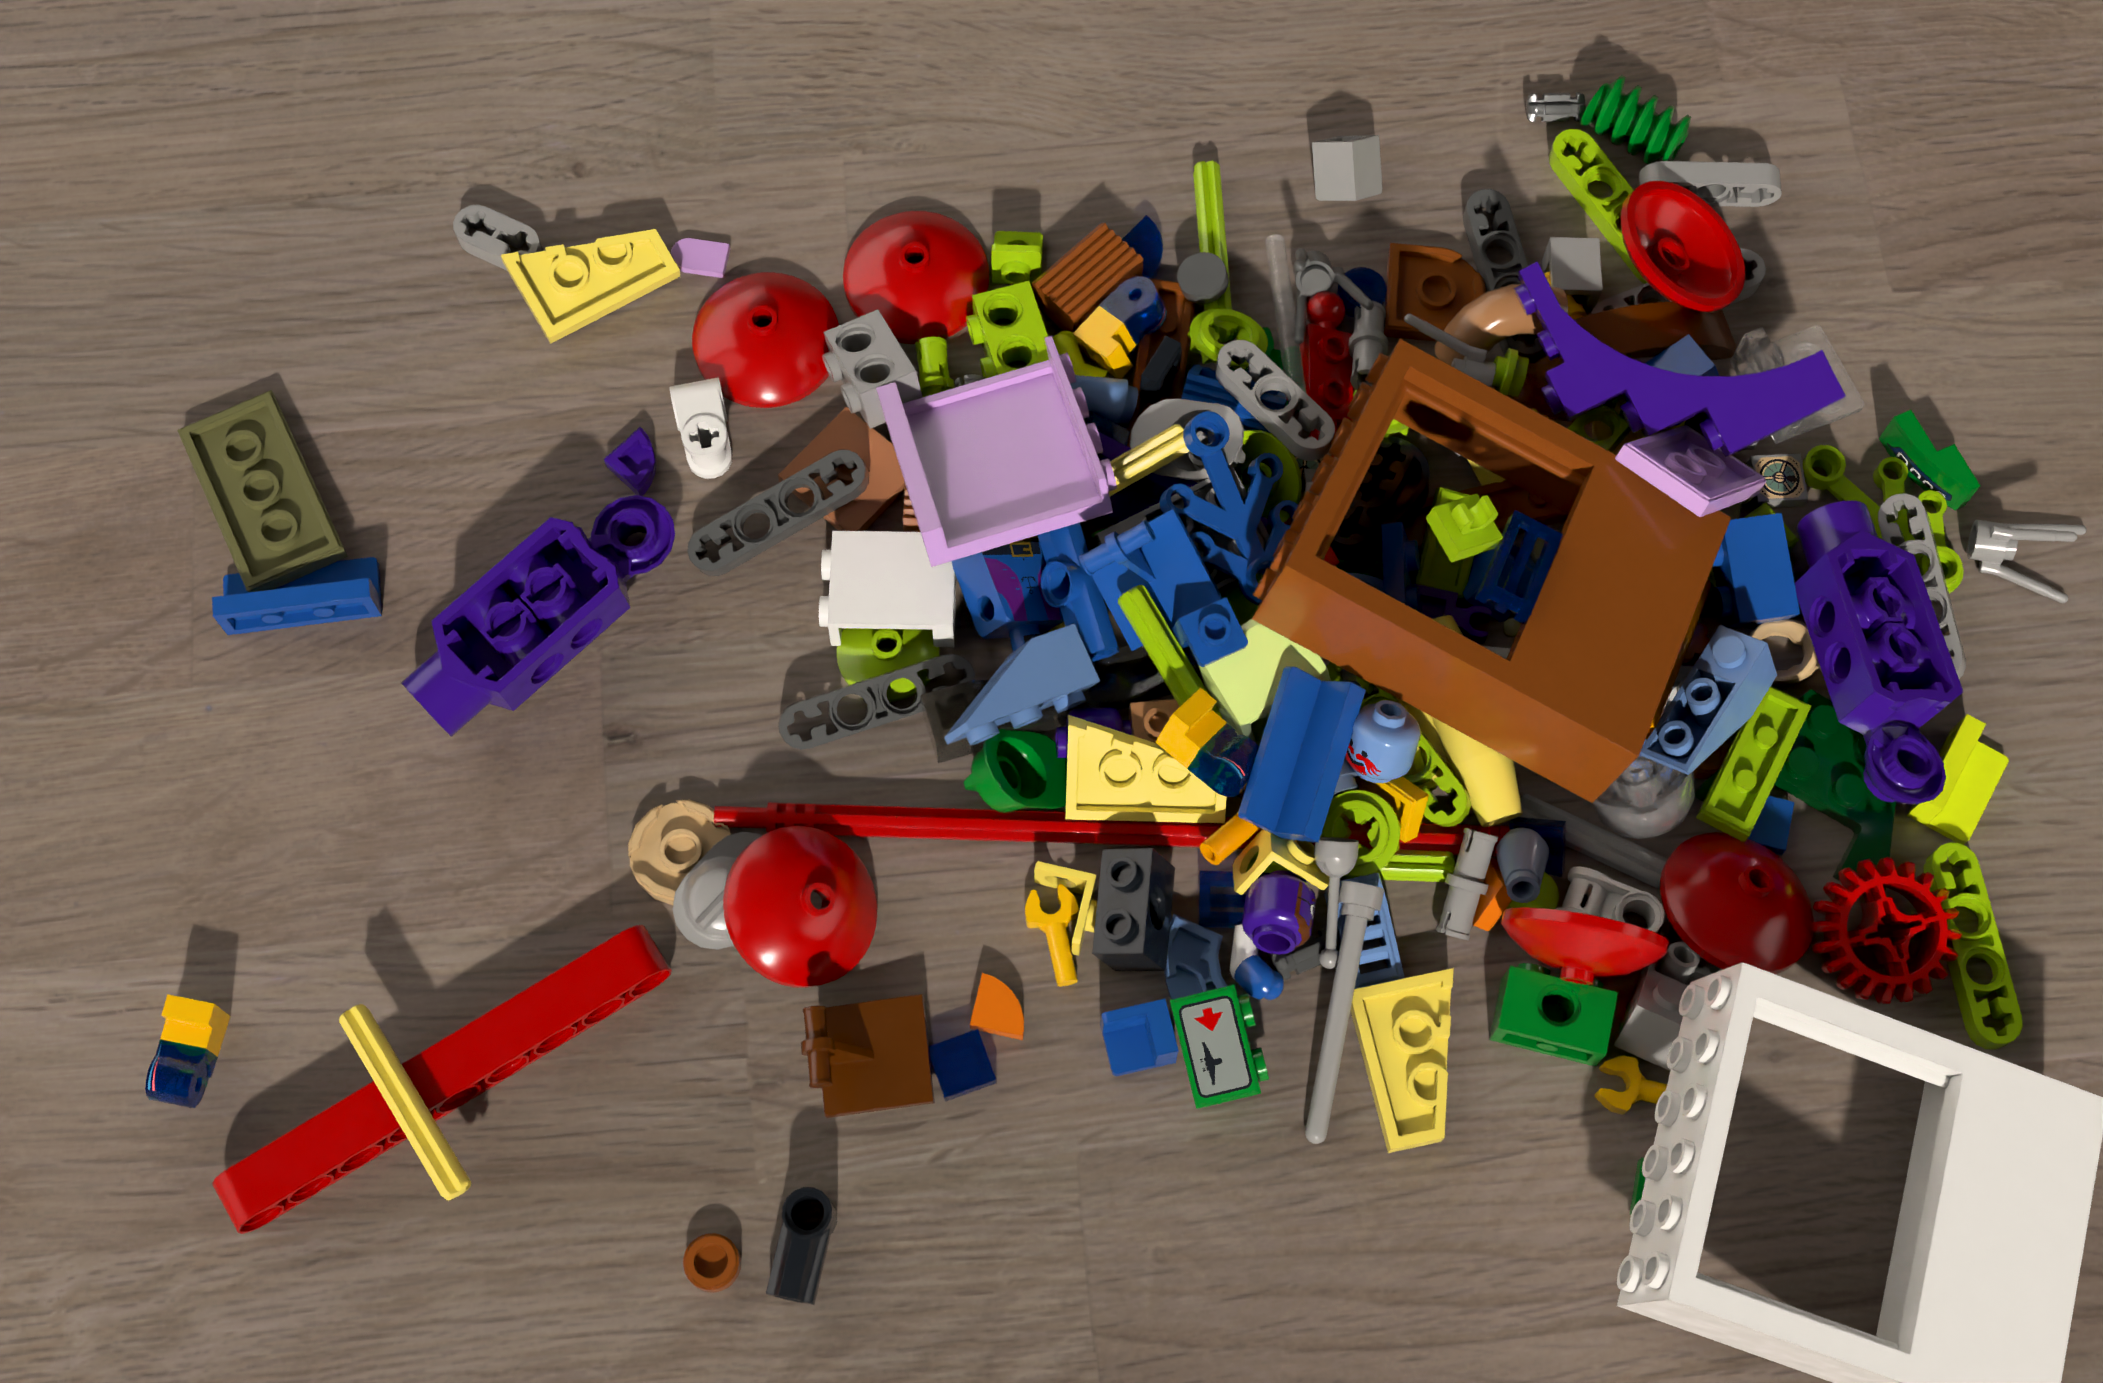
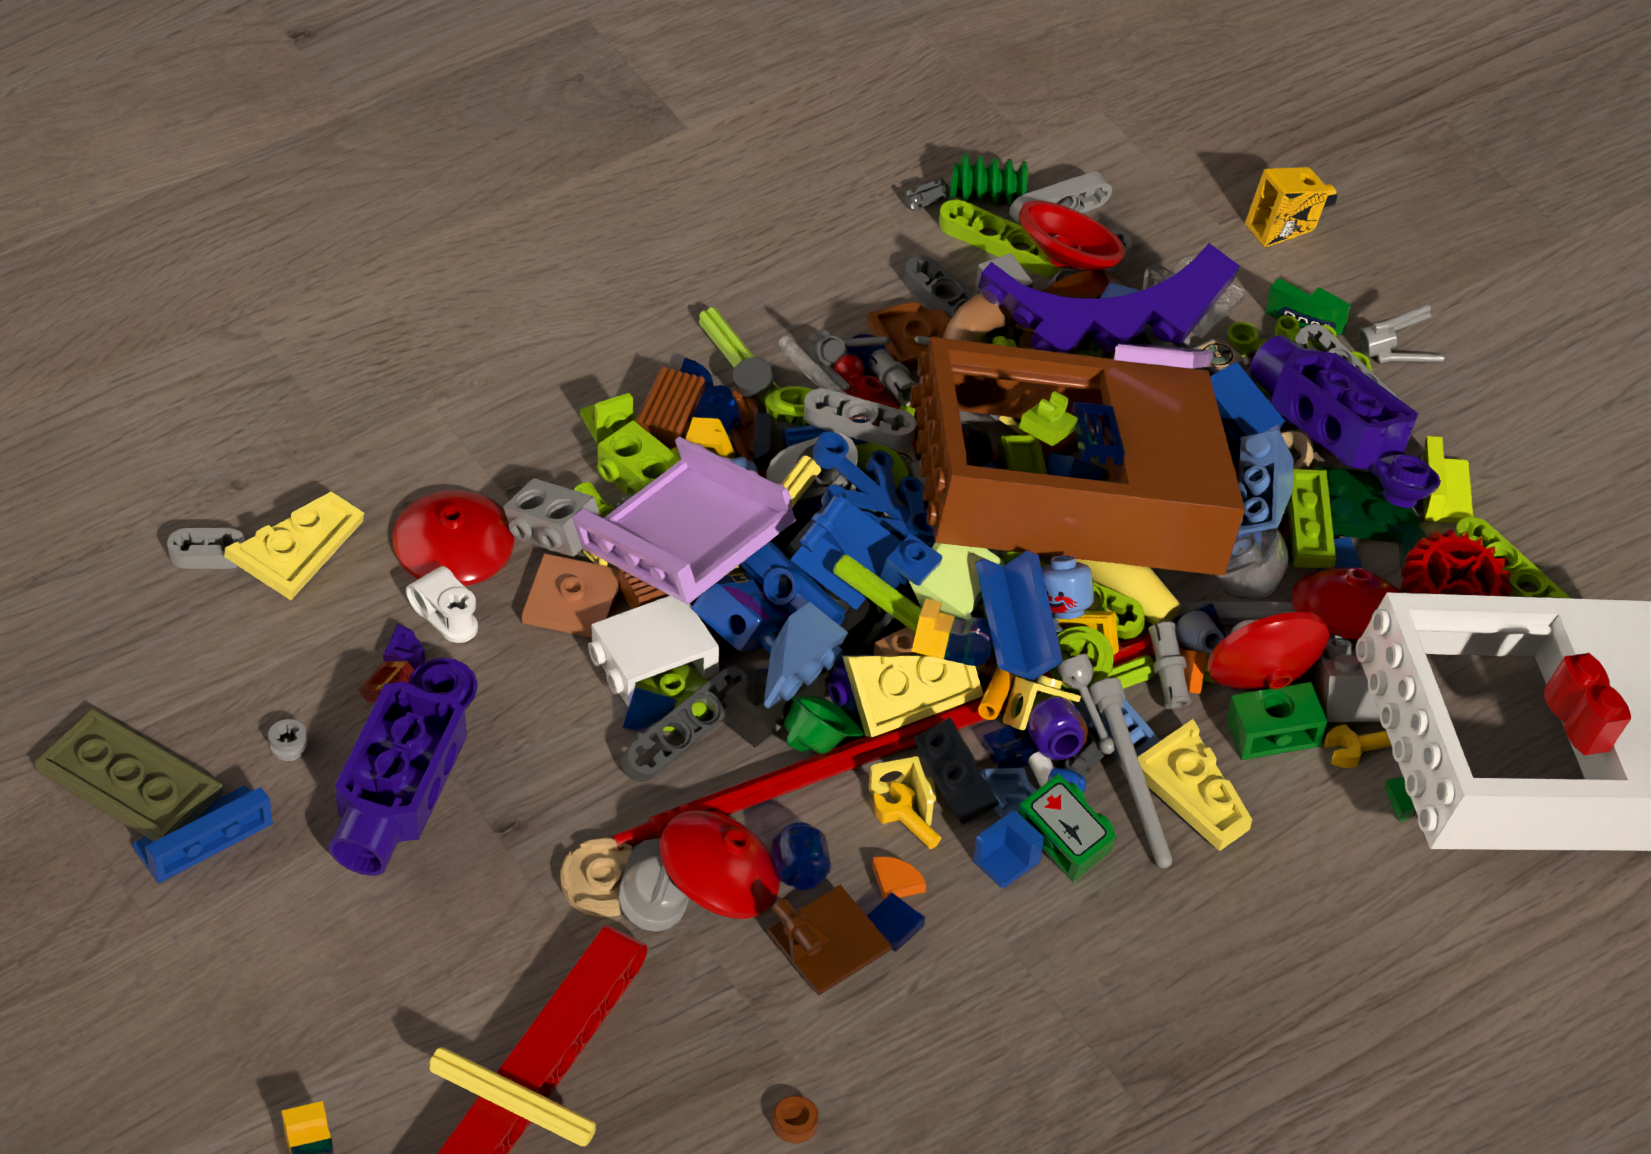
camera: 30 degrees left, 20 degrees down
(435, 517) = (288, 750): none -> light grey bush
(584, 498) = (385, 673): none -> clear red plate
(701, 257) = (373, 503): lavender piece -> none
(782, 520) = (535, 631): dark grey beam -> none
(801, 1252) = (856, 1073): black piece -> none
(842, 662) = (647, 709): none -> clear blue tile
(898, 936) = (801, 856): none -> clear blue head
(922, 296) = (538, 448): red dish -> none
(1347, 168) = (808, 278): light grey panel -> none
(1912, 1239) = (1587, 704): none -> red brick
(1988, 307) = (1288, 204): none -> yellow torso

